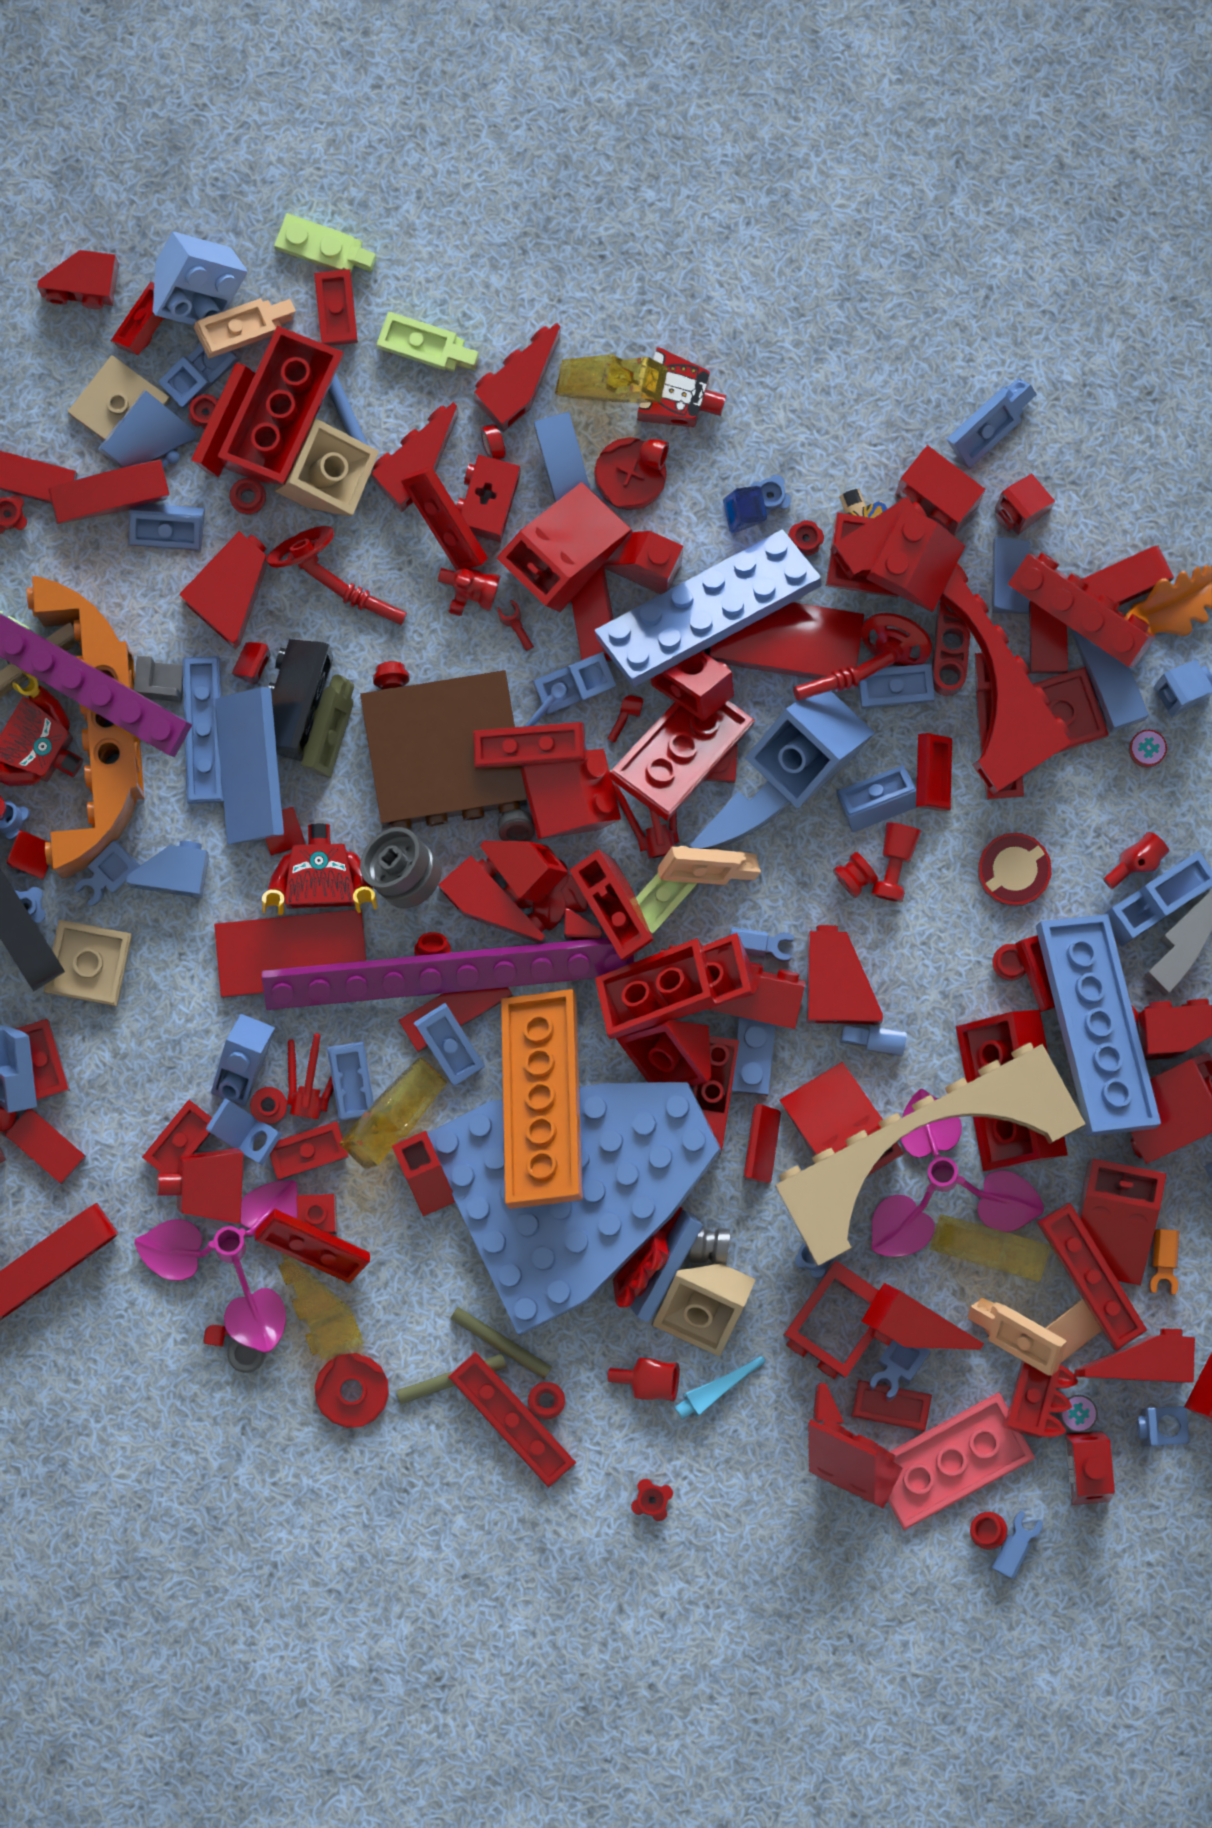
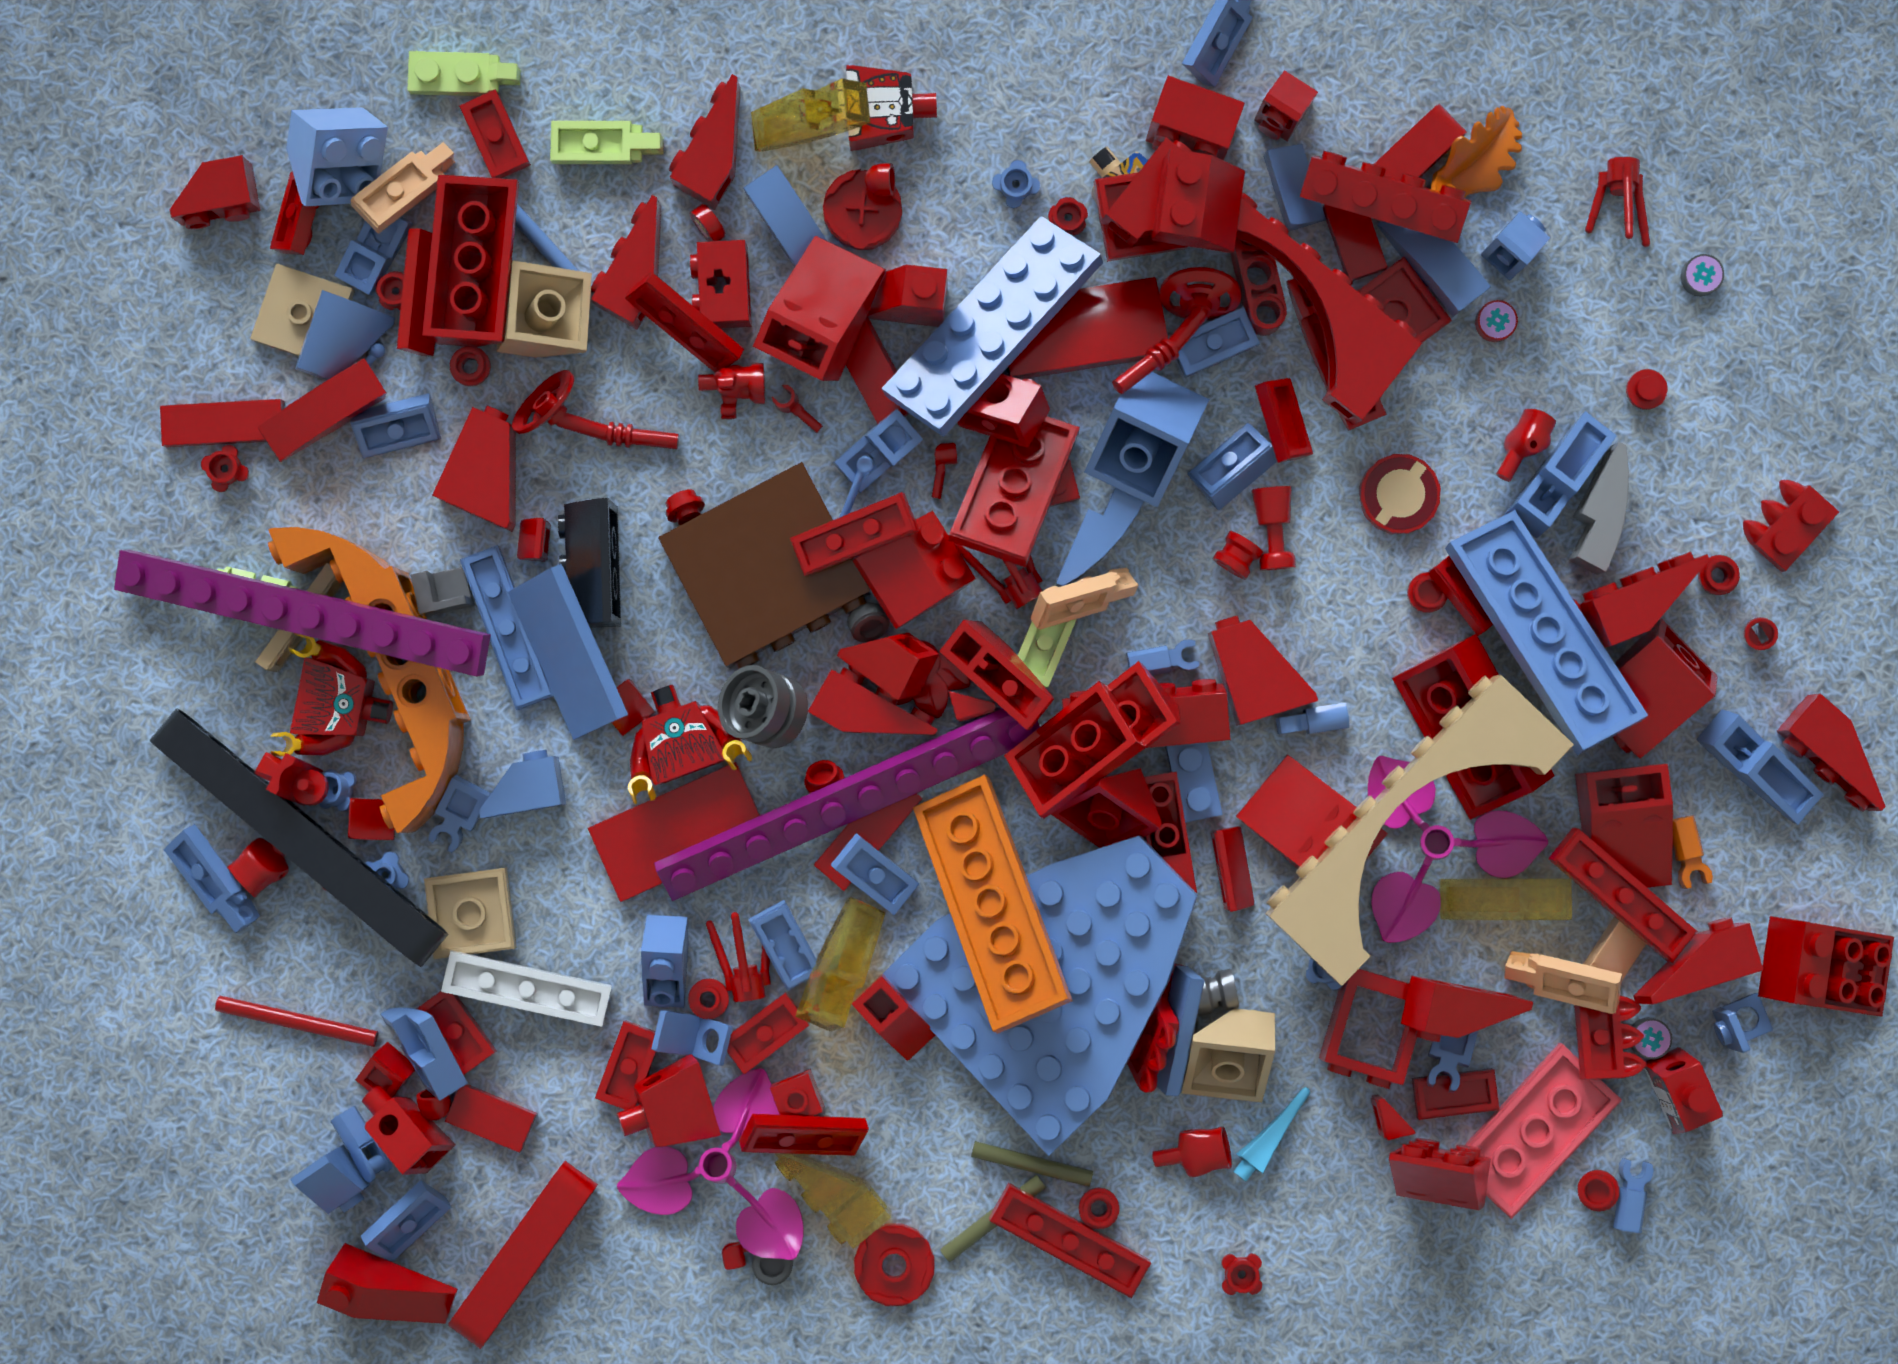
camera: 15 degrees left, 5 degrees up
(115, 1043) = (526, 988): none -> white plate
(329, 727) = (637, 582): olive hinge -> none
(744, 508) = (994, 207): clear blue slope -> none

